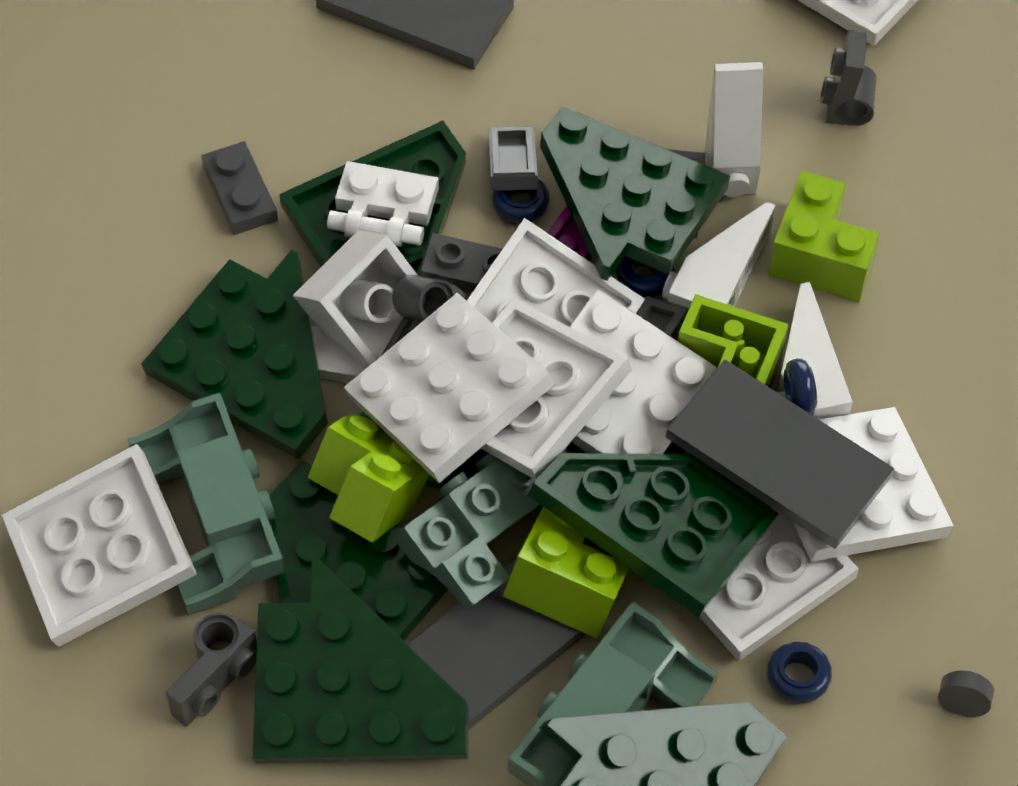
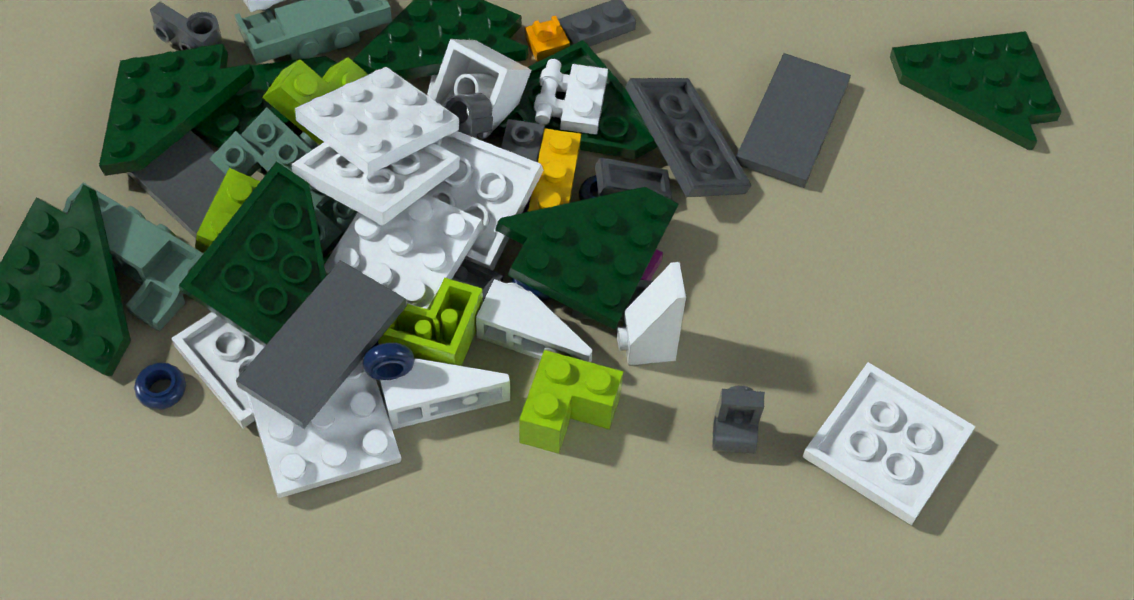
camera: 85 degrees right, 0 degrees up
(259, 240) = (546, 38): none -> light orange tile
(444, 99) = (688, 137): none -> dark grey tile
(497, 223) = (559, 160): none -> yellow plate
(966, 693) = (124, 499): dark grey tile -> none

